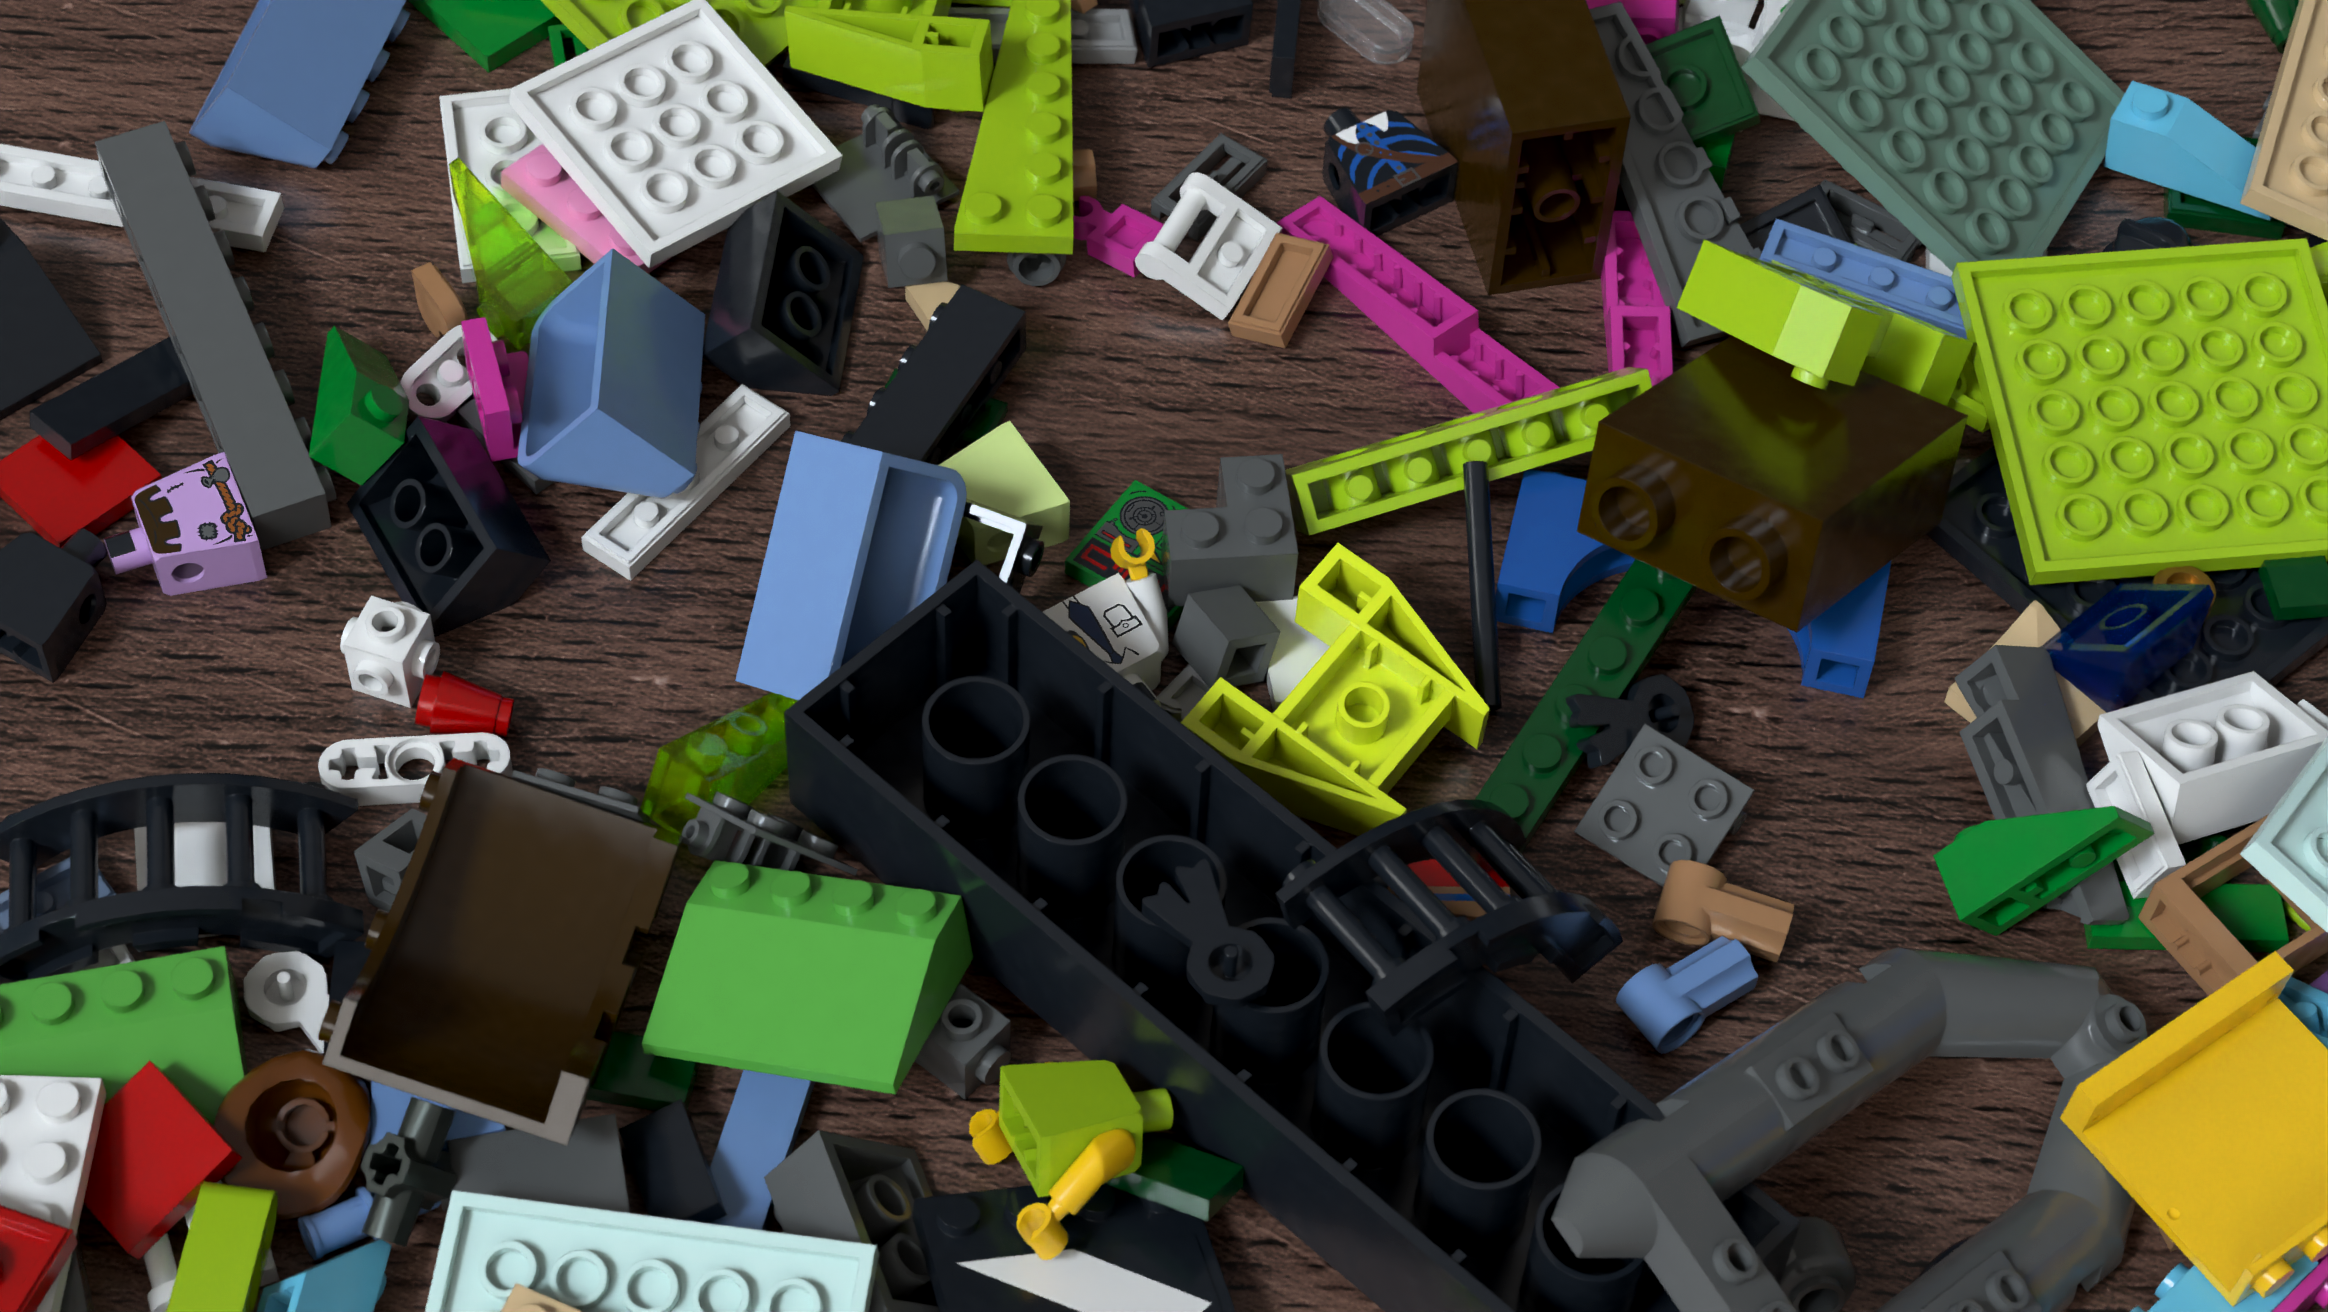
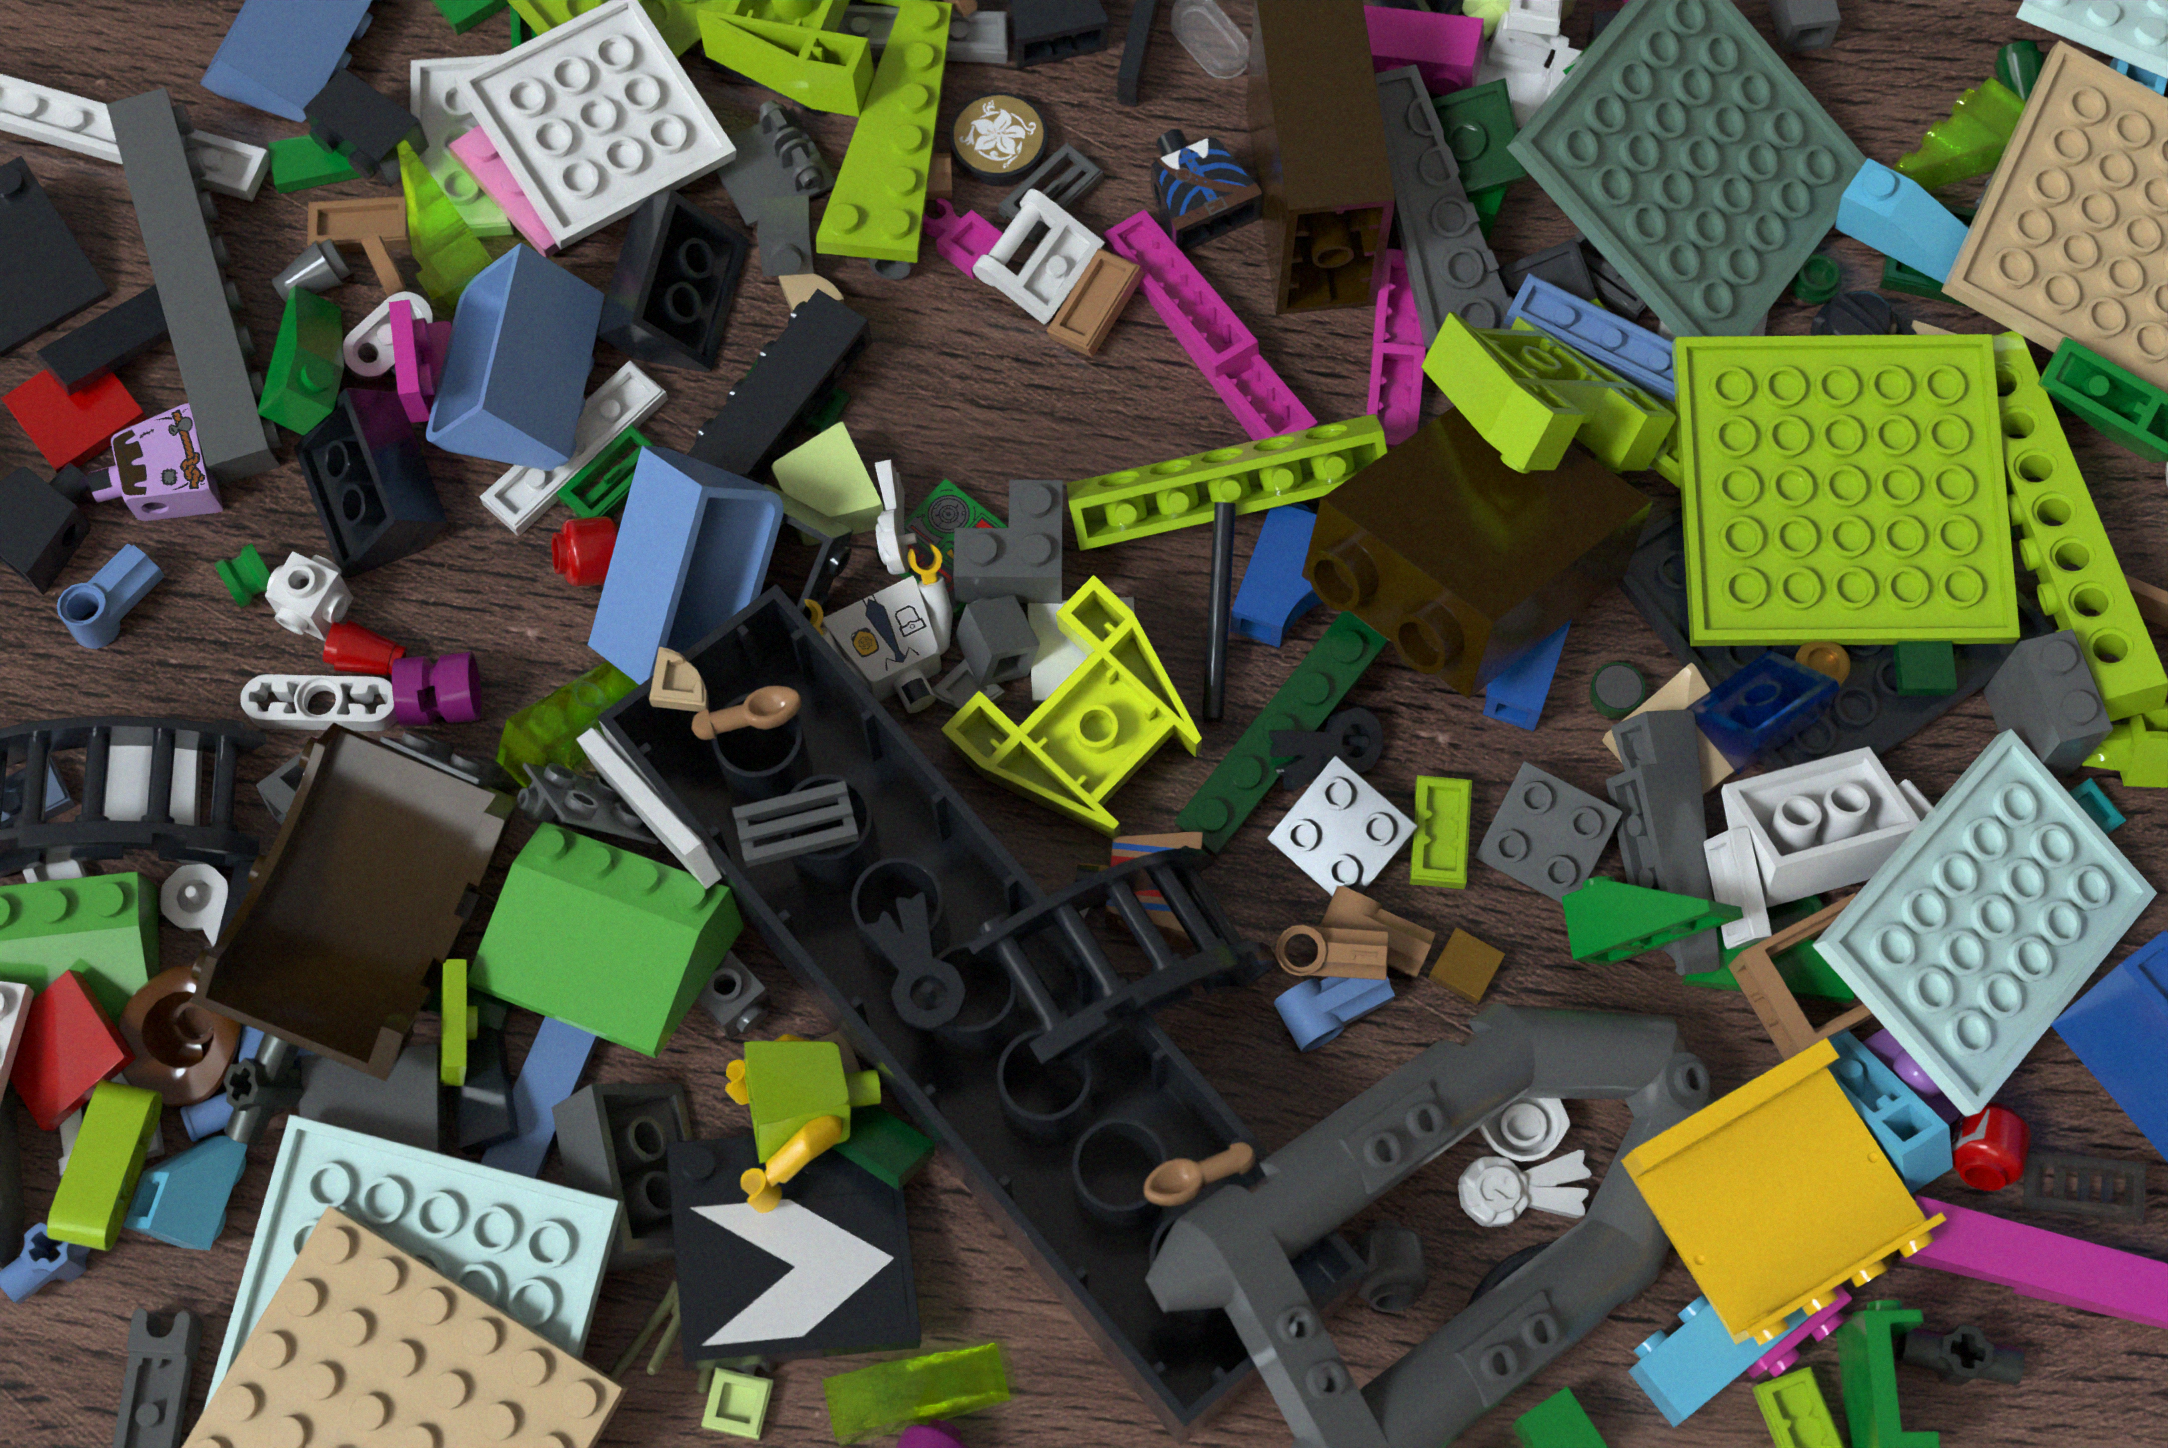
camera: 10 degrees right, 15 degrees up
(130, 679) = (109, 593): none -> medium blue piece
(308, 636) = (244, 575): none -> green wheel
(345, 202) = (302, 165): none -> green tile
(357, 309) = (315, 270): none -> dark grey cone
(384, 267) = (357, 219): none -> medium nougat tile
(397, 158) = (363, 127): none -> black brick
(583, 731) = (455, 694): none -> magenta wheel
(636, 1088) = (457, 1022): none -> lime plate
(720, 580) = (584, 549): none -> red head
(745, 514) = (590, 472): none -> green tile
(851, 821) = (650, 808): none -> white tile
(878, 667) = (677, 683): none -> tan tile
(981, 684) = (762, 709): none -> medium nougat piece
(1037, 792) = (789, 804): none -> dark grey tile
(1082, 523) = (890, 530): none -> white piece
(1140, 135) = (998, 138): none -> tile
(1562, 1138) = (1184, 1179): none -> medium nougat piece
(1690, 923) = (1340, 952): none -> medium nougat piece
(1781, 809) = (1442, 837): none -> lime plate
(1833, 944) = (1466, 966): none -> pearl gold tile
(1902, 794) = (1548, 833): none -> dark grey hinge
(1920, 1181) = (1497, 1191): none -> white piece
(1933, 1102) = (1527, 1128): none -> white hat
(1951, 644) = (1617, 690): none -> flat silver tile
(2094, 217) = (1816, 280): none -> dark green plate
(2238, 65) = (1968, 141): none -> clear neon green slope

